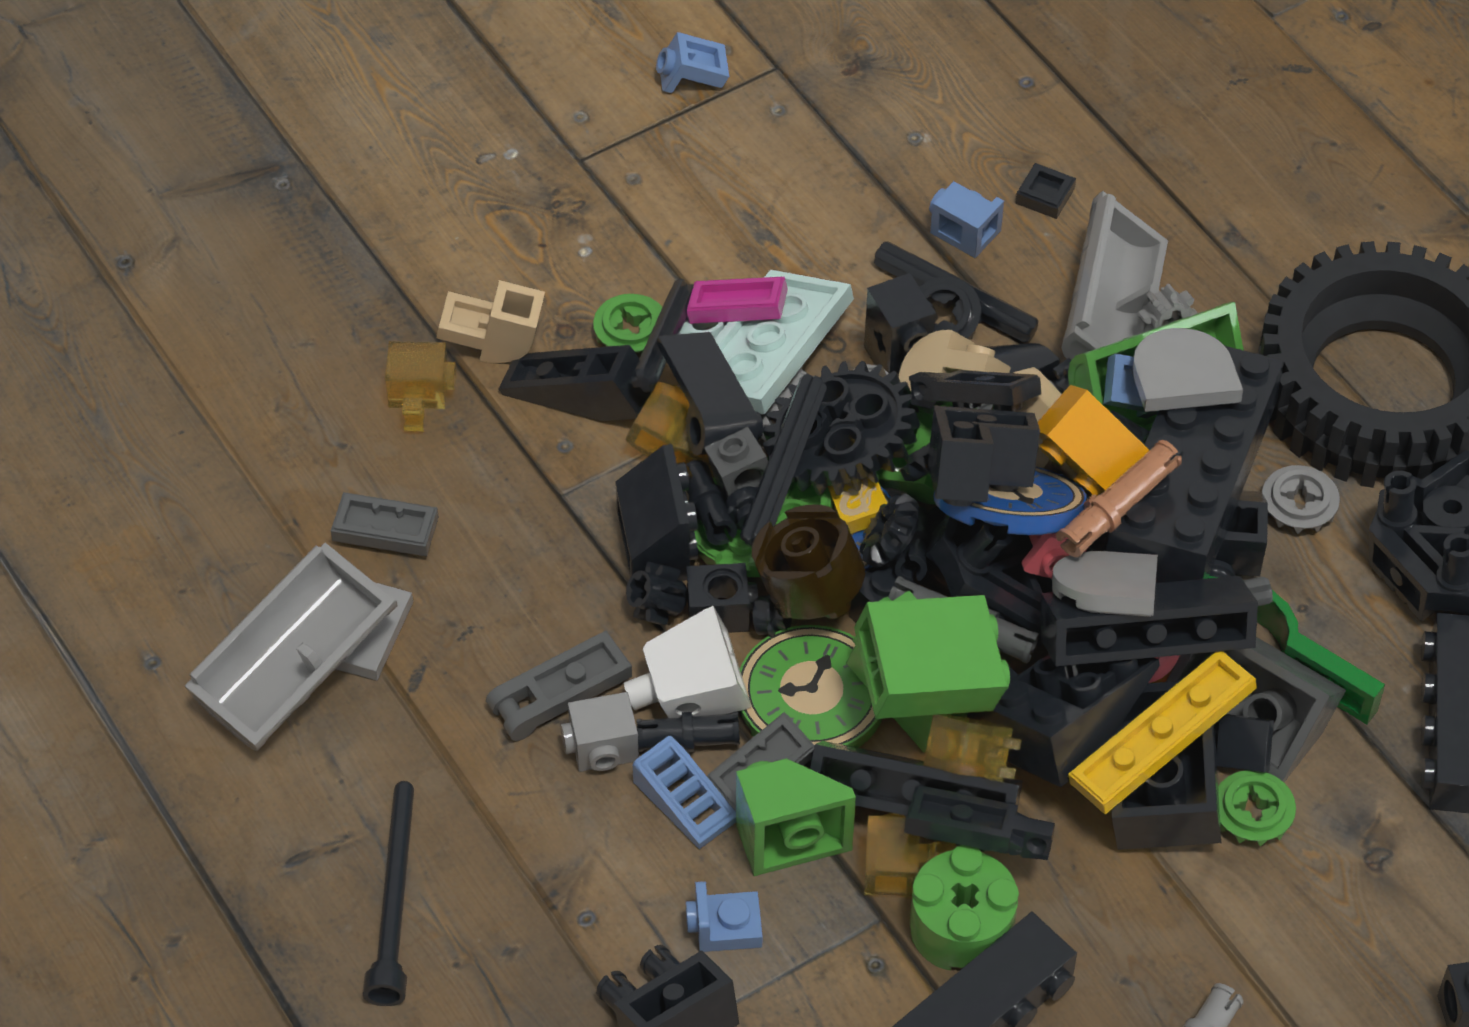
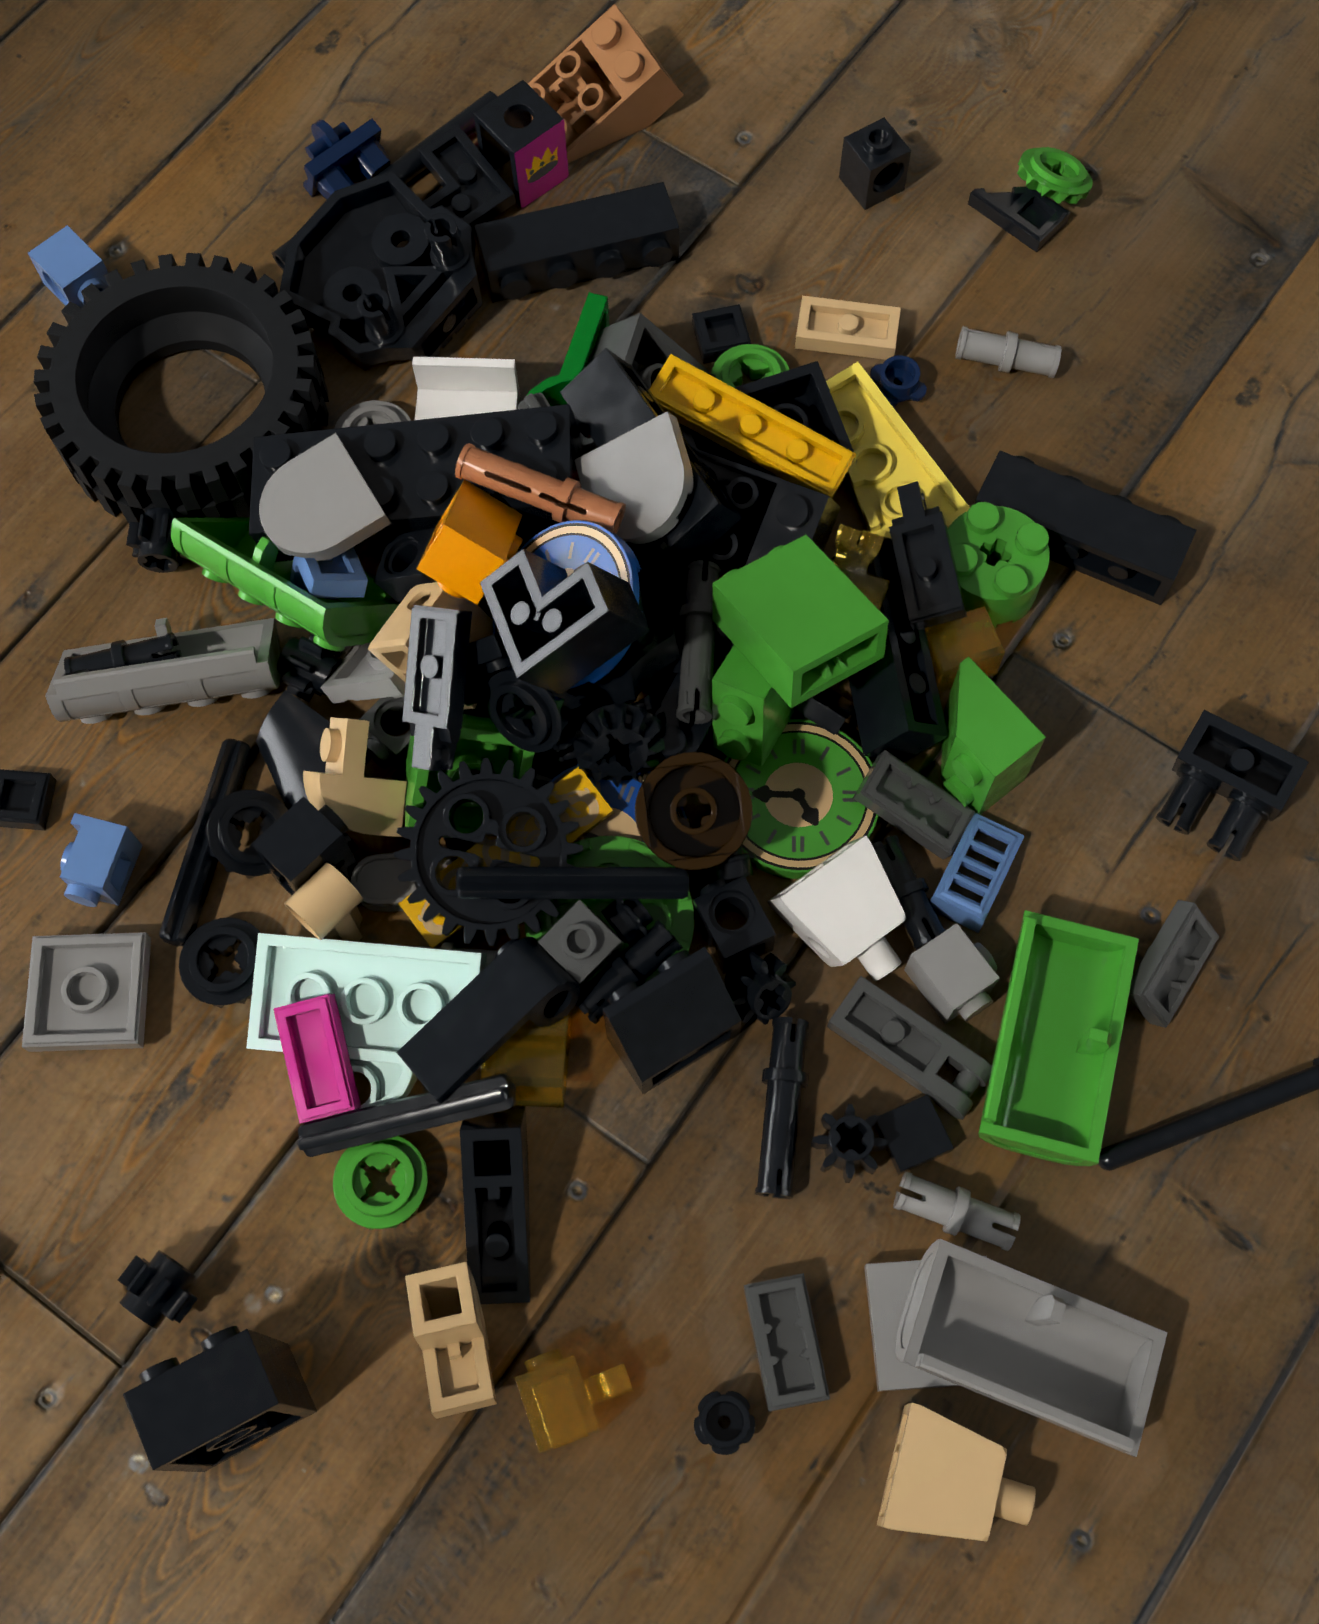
camera: 110 degrees left, 15 degrees up
(231, 577) = (949, 1480): none -> tan torso
(348, 461) = (742, 1425): none -> black plate
(418, 665) = (957, 1211): none -> light grey pin
(490, 663) = (913, 1134): none -> black tile
(505, 611) = (847, 1127): none -> black gear
(516, 172) = (217, 1401): none -> black brick
(517, 773) = (1059, 1041): none -> bright green container
(533, 895) = (1172, 963): none -> dark grey plate
(573, 590) = (782, 1107): none -> black pin
(617, 177) = (157, 1289): none -> black gear
(724, 920) = (1096, 779): medium blue bracket -> none
(849, 327) = (328, 906): none -> tan piece
(851, 263) = (198, 967): none -> black gear
(862, 192) = (87, 992): none -> light grey plate
(883, 734) = (828, 711): none -> black tile
(1117, 880) = (886, 454): none -> light yellow wing
(1128, 261) = (124, 654): none -> black pin
(1166, 307) = (190, 599): light grey gear -> none
(1210, 918) = (903, 370): none -> dark blue plate
(1250, 315) = (153, 540): none -> black gear
(1282, 906) = (847, 327): none -> tan plate
(1312, 573) = (464, 386): none -> white panel
(1320, 806) = (719, 331): none -> black tile

